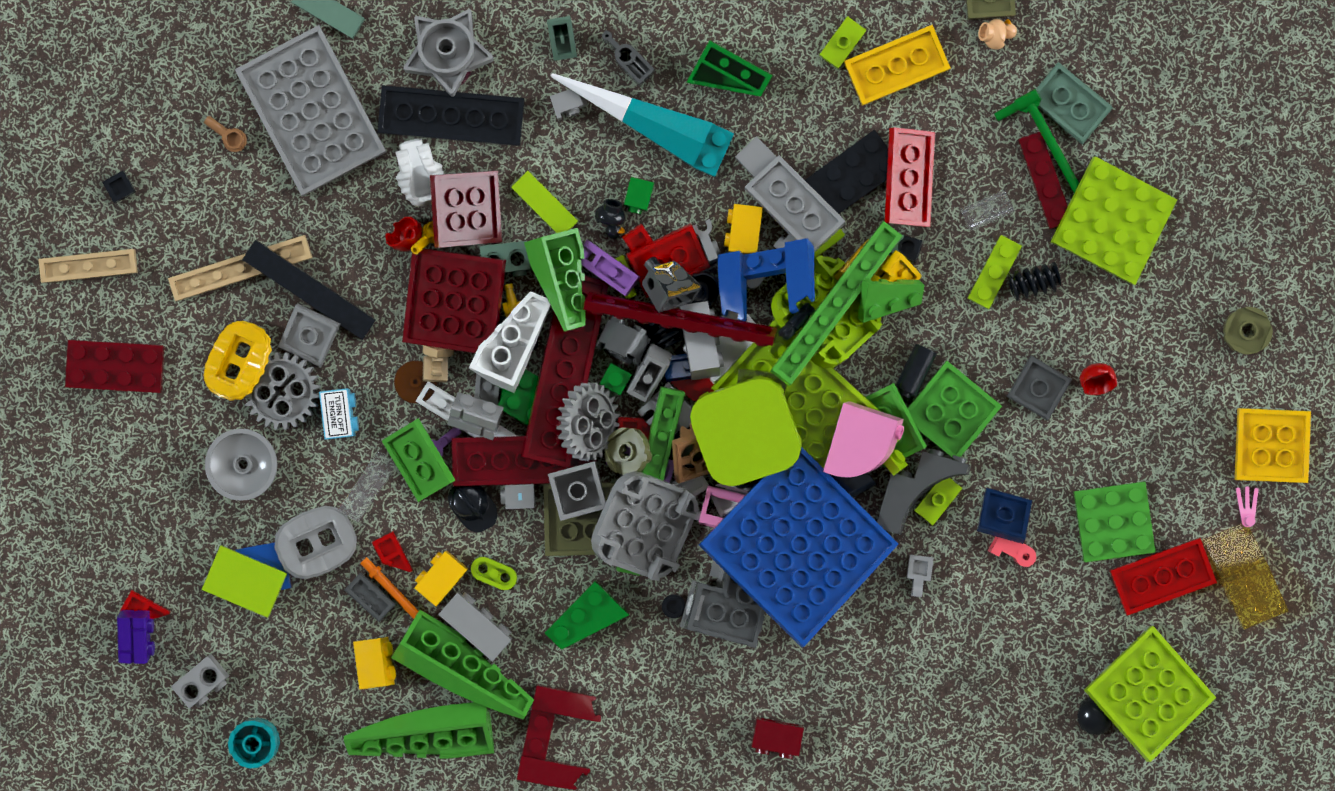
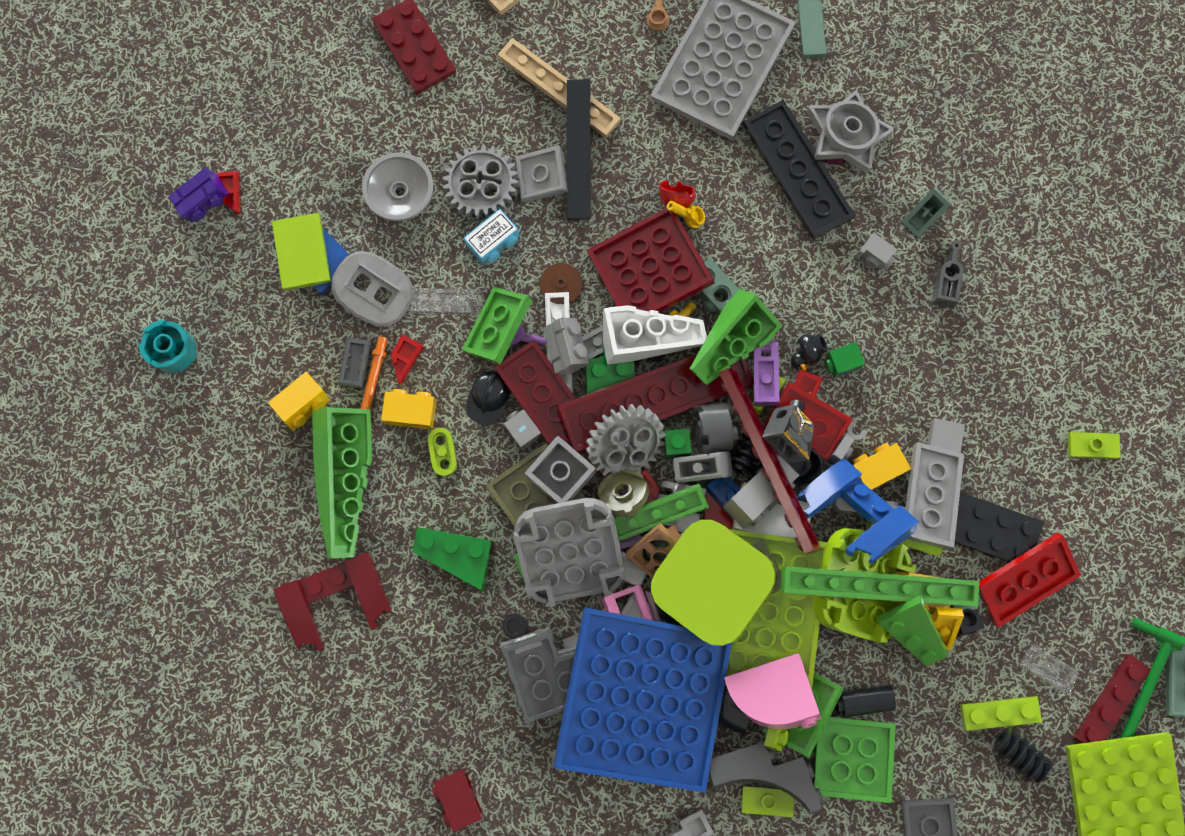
camera: 60 degrees right, 10 degrees down
(197, 677) = (196, 269): light grey brick -> none
(224, 354) = (481, 120): yellow piece -> none
(415, 170) = (734, 171): white hair -> none
(435, 369) = (582, 291): tan tile -> none
(437, 352) = (598, 283): tan tile -> none
(441, 730) = (279, 499): bright green wedge -> none
(465, 208) = (733, 225): plate -> none
(476, 625) = (387, 466): light grey brick -> none
(544, 203) = (781, 287): lime tile -> none
(684, 136) = (919, 364): teal plate -> none
(728, 71) = (1001, 365): green wedge -> none
(796, 321) = (840, 561): black axle -> none
(897, 65) = (1111, 504): yellow plate -> none

